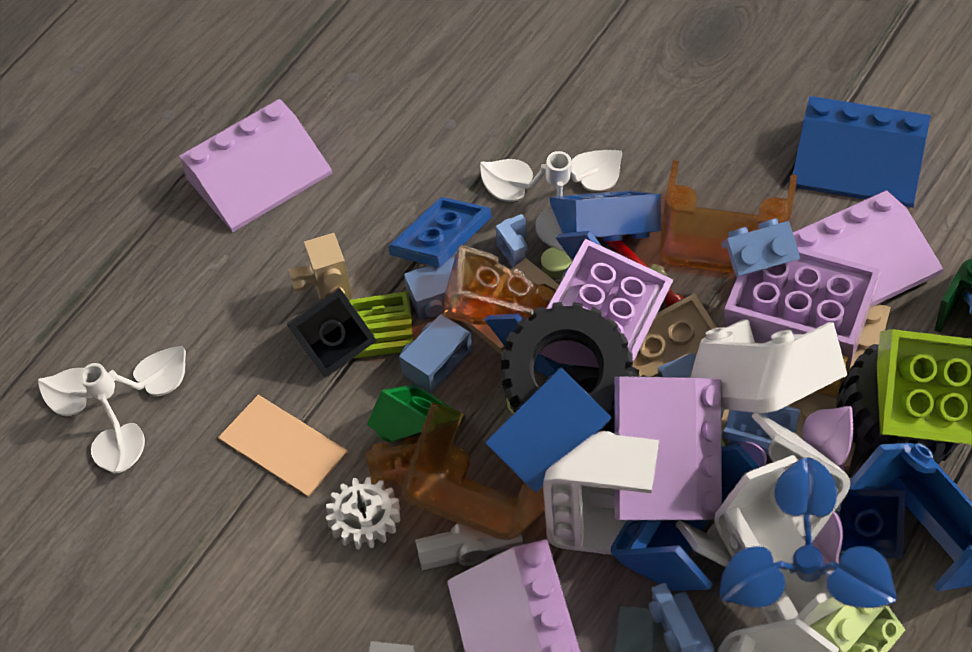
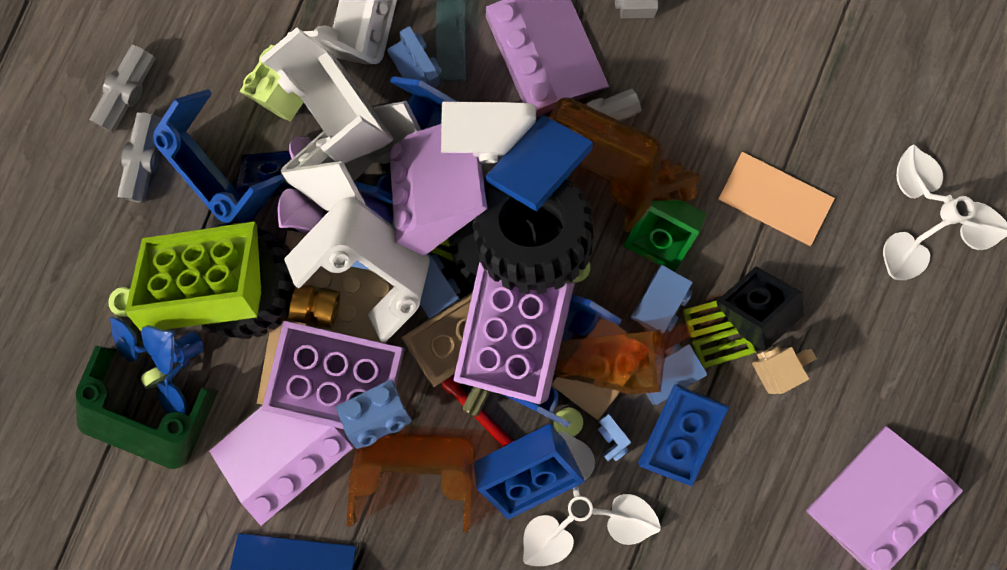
camera: 160 degrees right, 30 degrees up
(346, 517) = (685, 122): white gear -> none
(858, 580) = (311, 119): blue plant -> none

